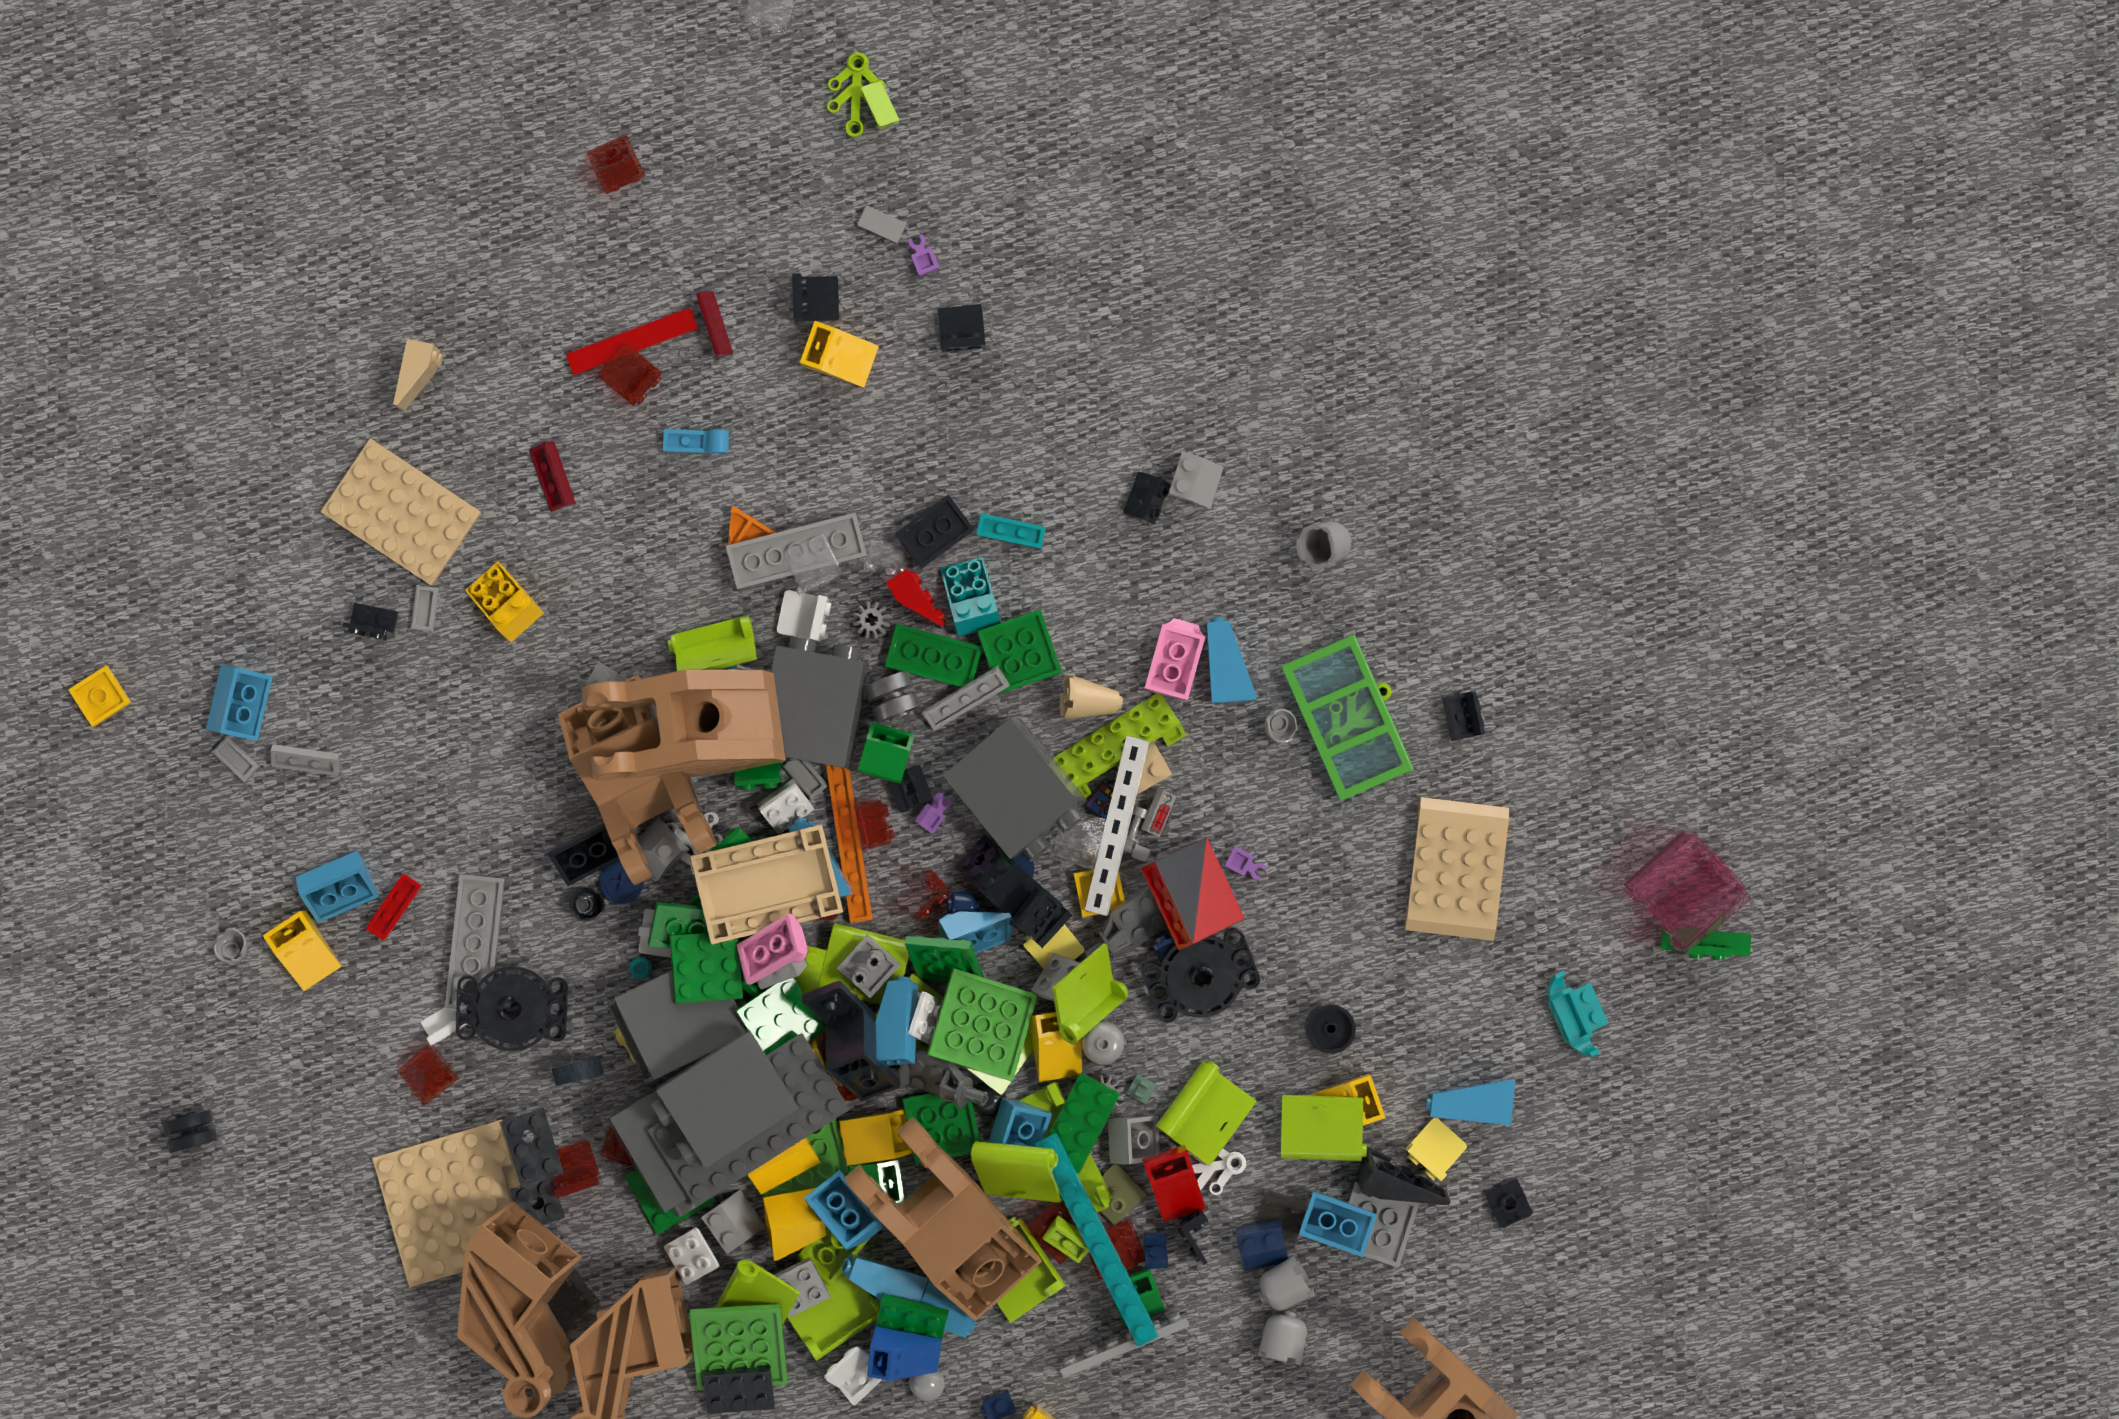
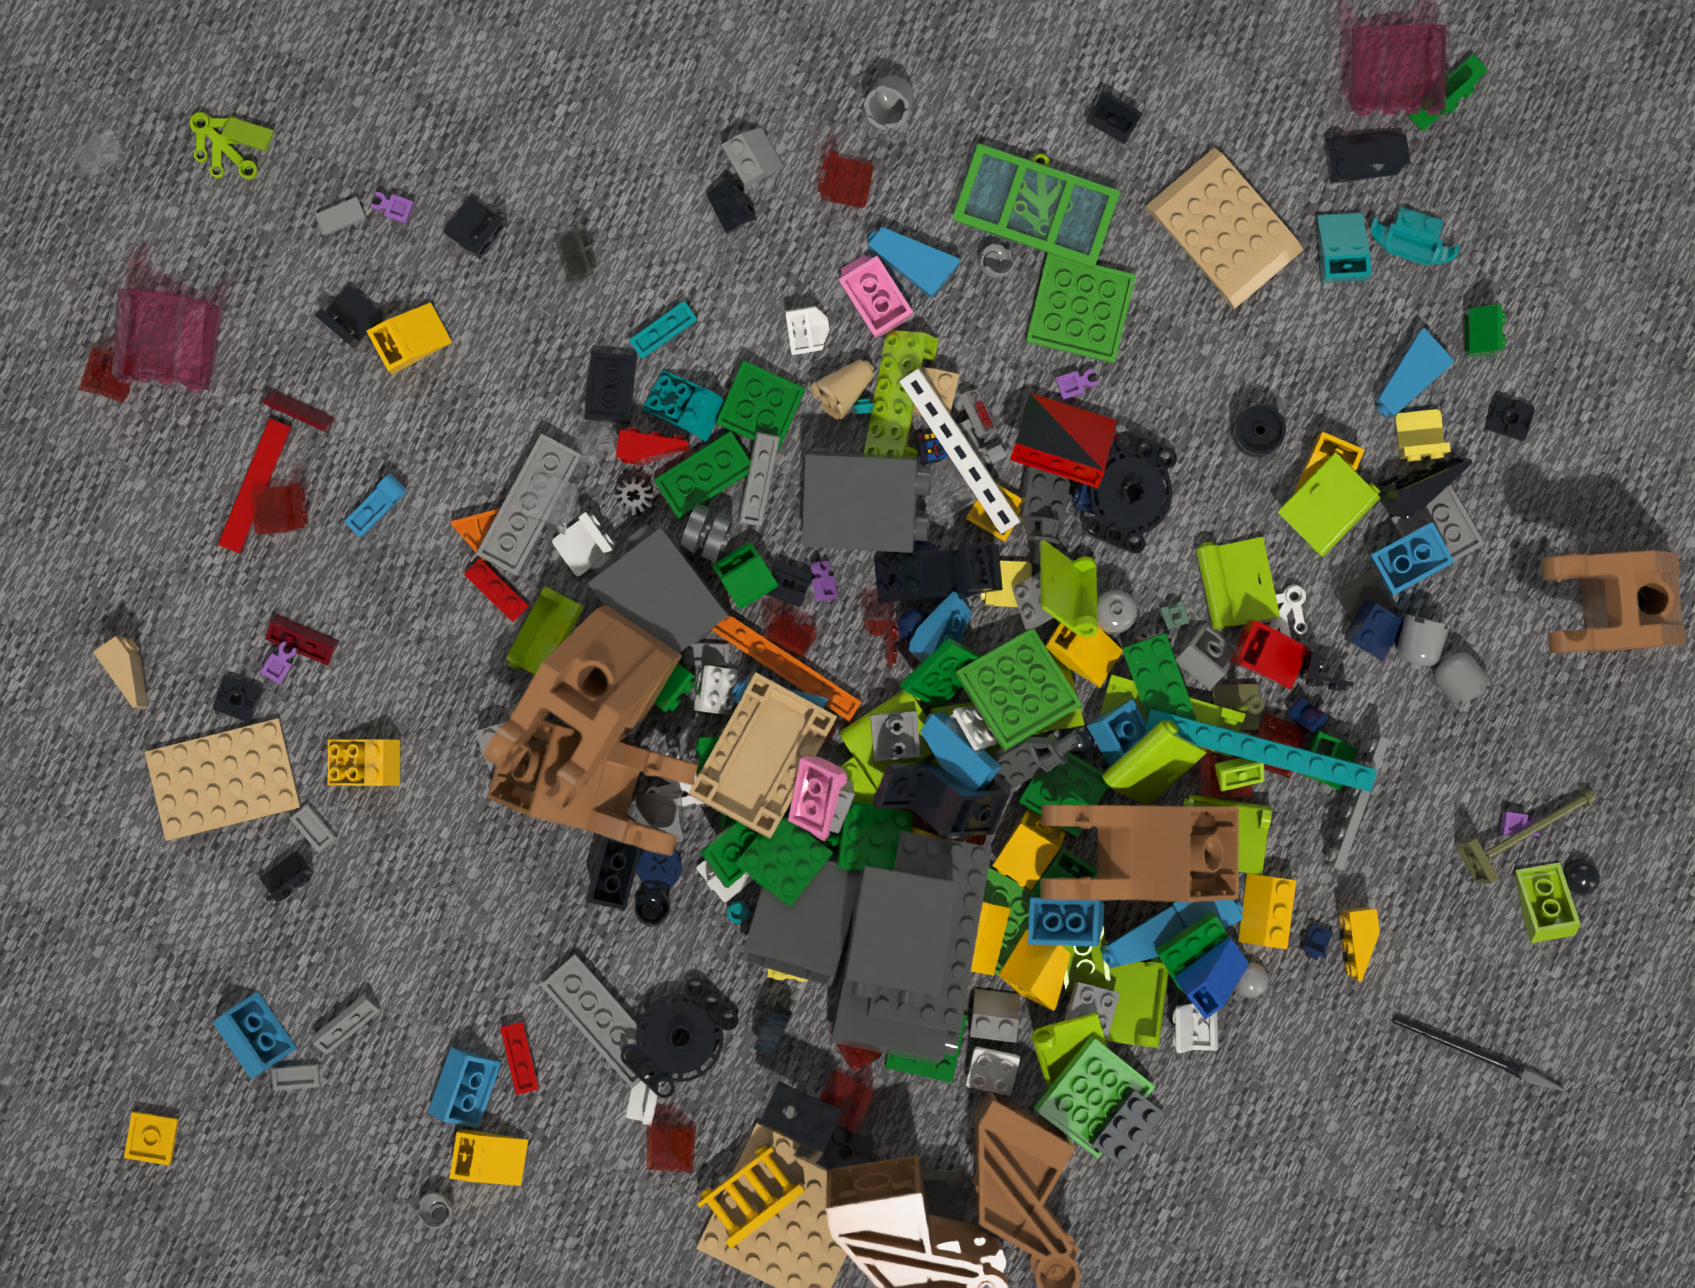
camera: 50 degrees left, 0 degrees up
(430, 1180) = (753, 1218): none -> yellow fence
(460, 479) = (226, 706): none -> black piece
(518, 476) = (278, 665): none -> medium lavender plate
(678, 182) = (164, 338): none -> clear pink windscreen
(714, 583) = (496, 590): none -> red plate
(987, 1350) = (1267, 911): none -> yellow slope
(1006, 417) = (575, 259): none -> clear smoke bracket
(1087, 725) = (863, 406): none -> teal plate
(1105, 634) = (806, 329): none -> white slope
(1239, 563) = (845, 181): none -> clear red bracket
(1302, 818) = (1080, 309): none -> bright green plate
(1521, 968) = (1343, 248): none -> teal slope
(1553, 1126) = (1484, 331): none -> green slope
(1604, 923) = (1365, 156): none -> black slope

